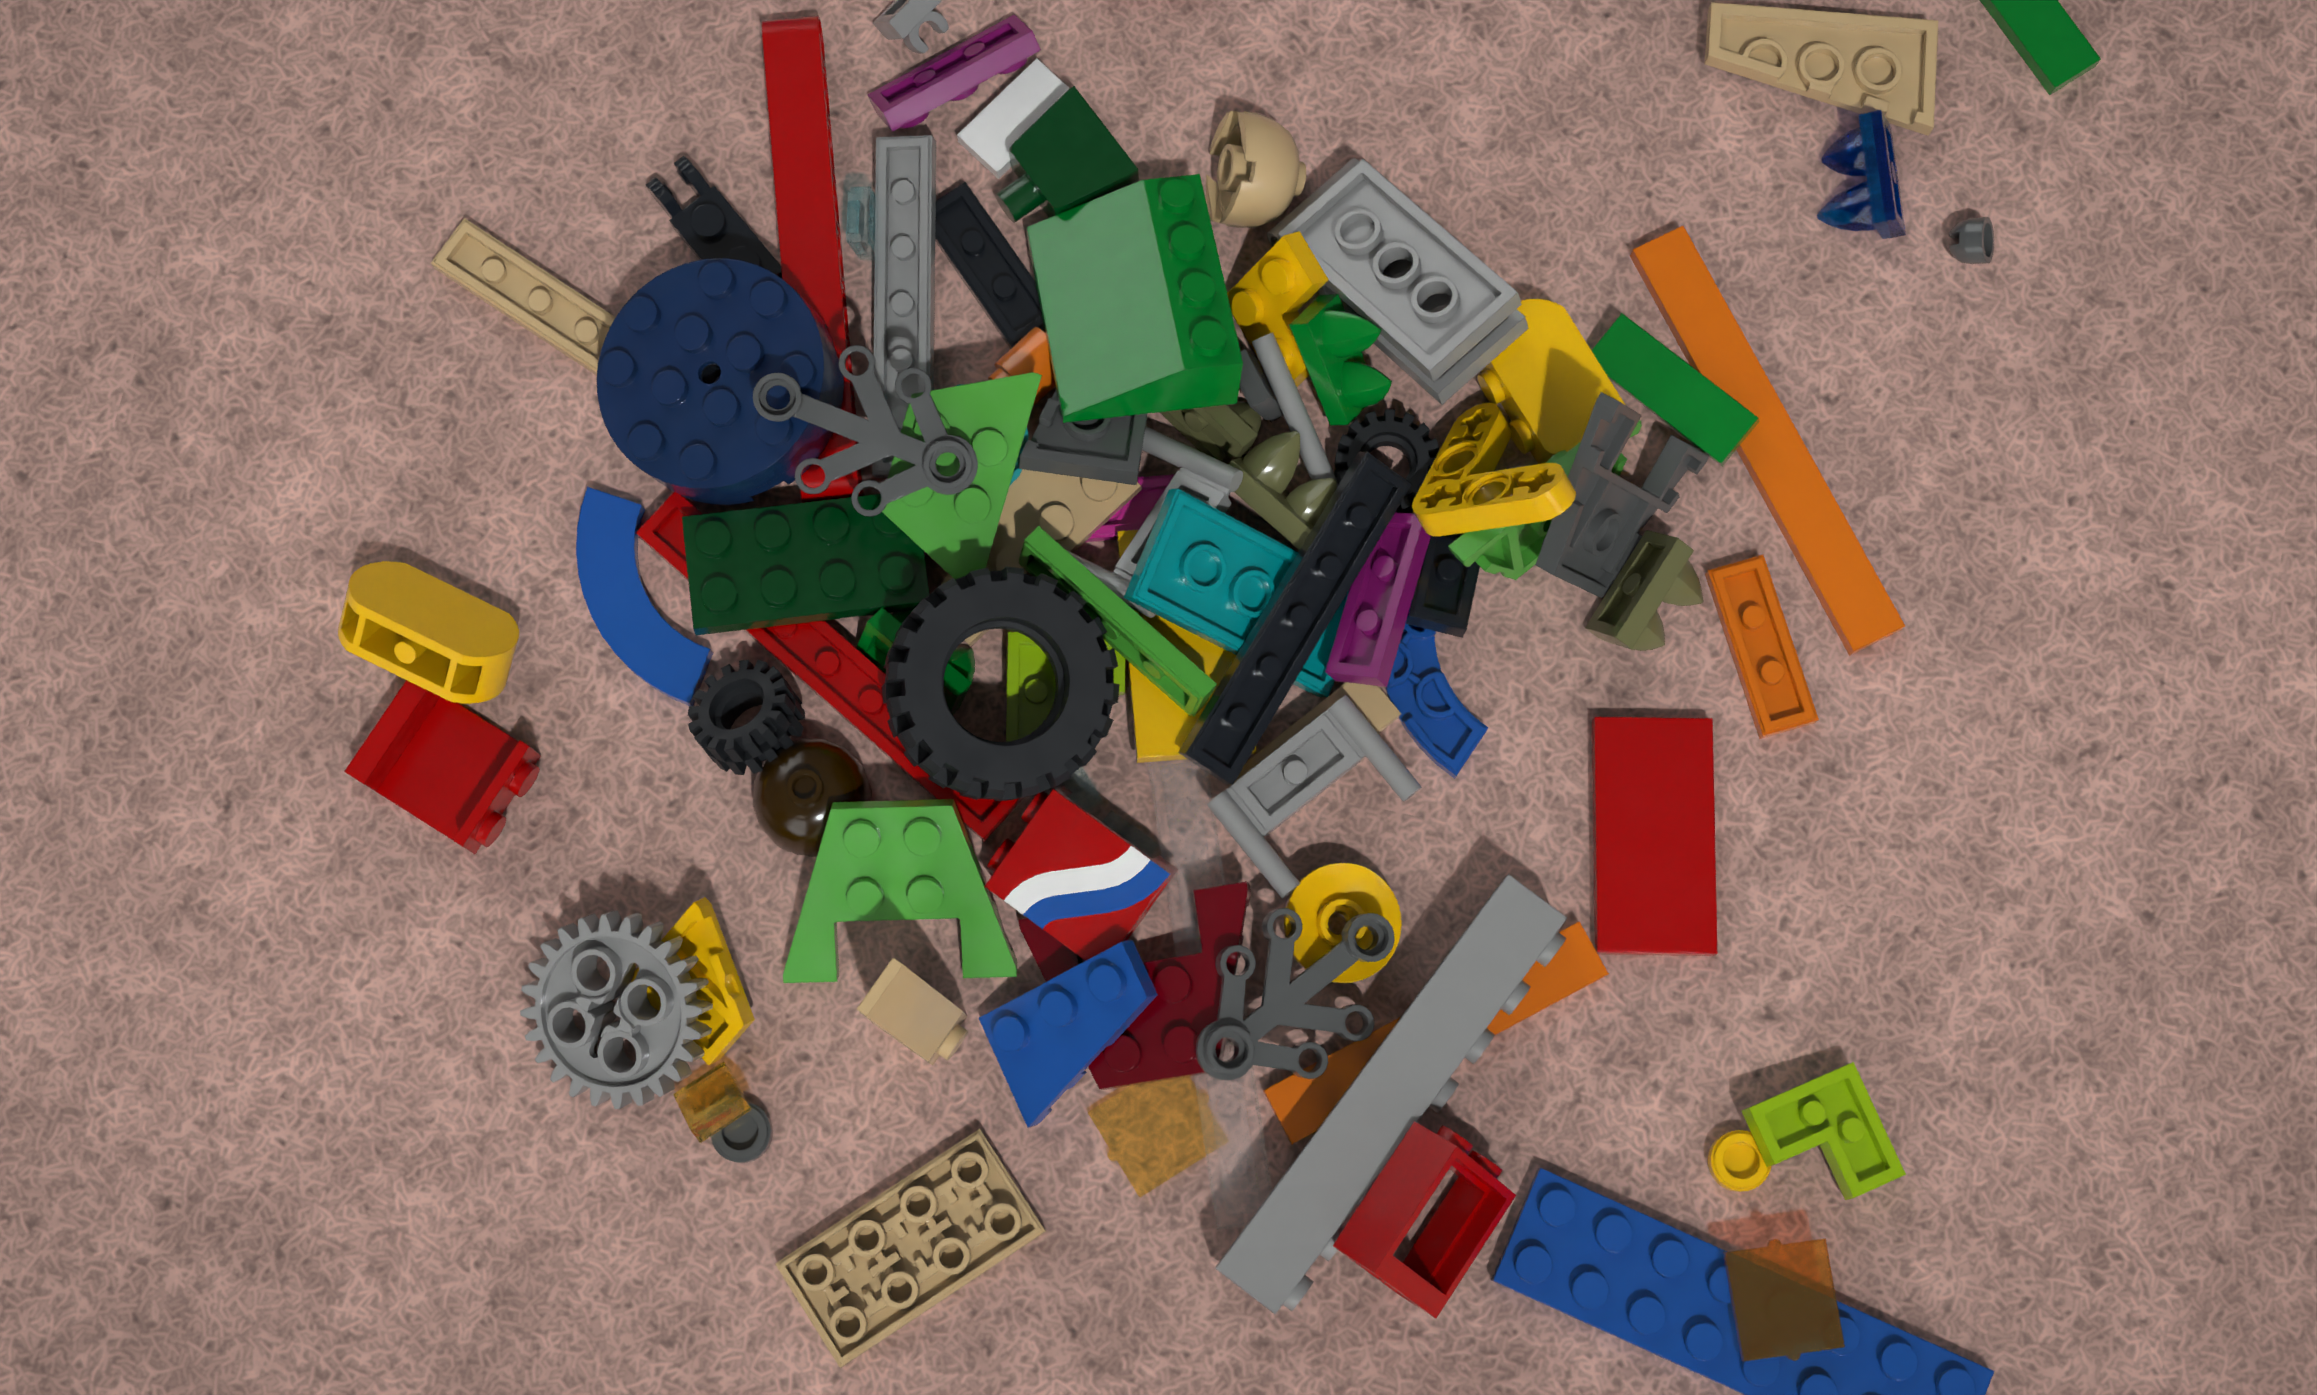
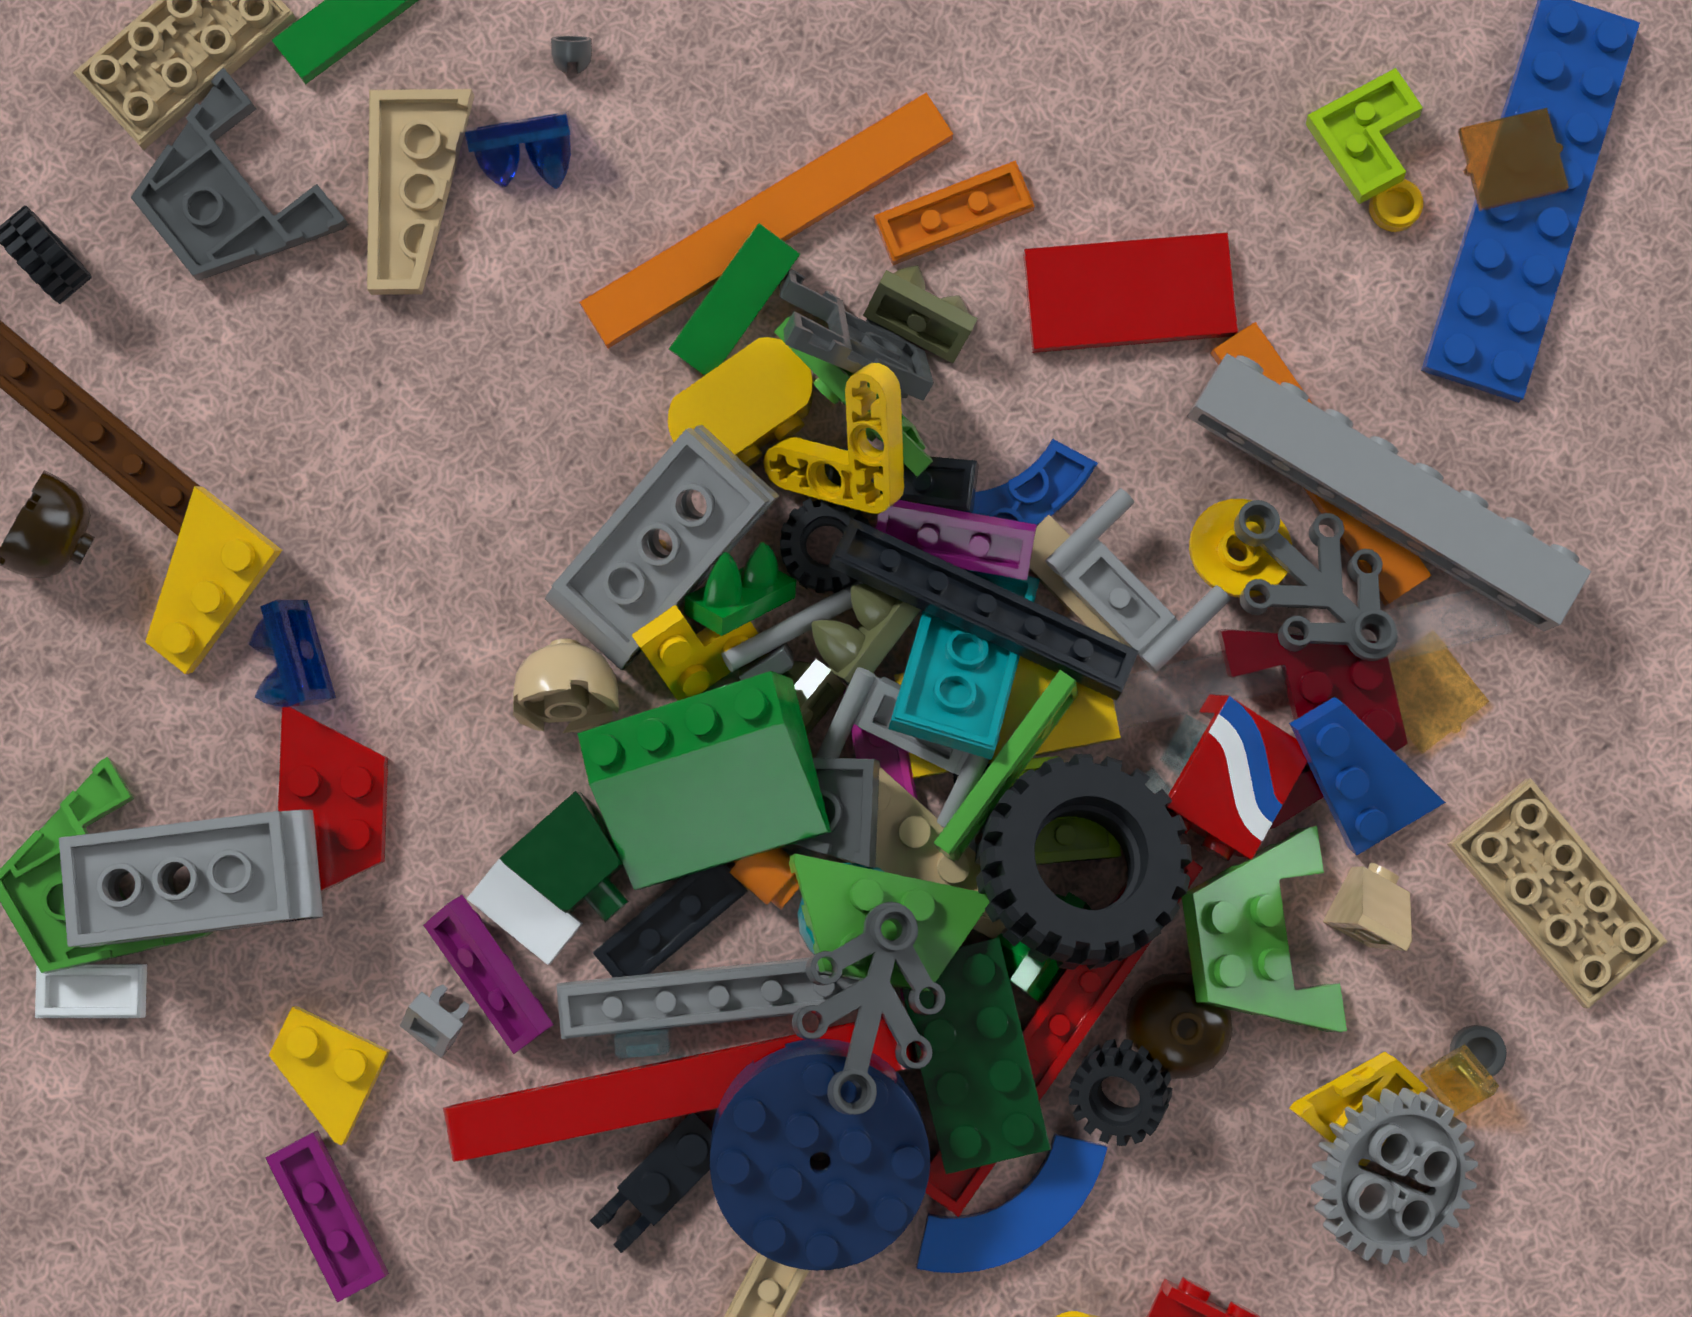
camera: 100 degrees left, 5 degrees up
(1452, 1234) = (1491, 454): red window -> none

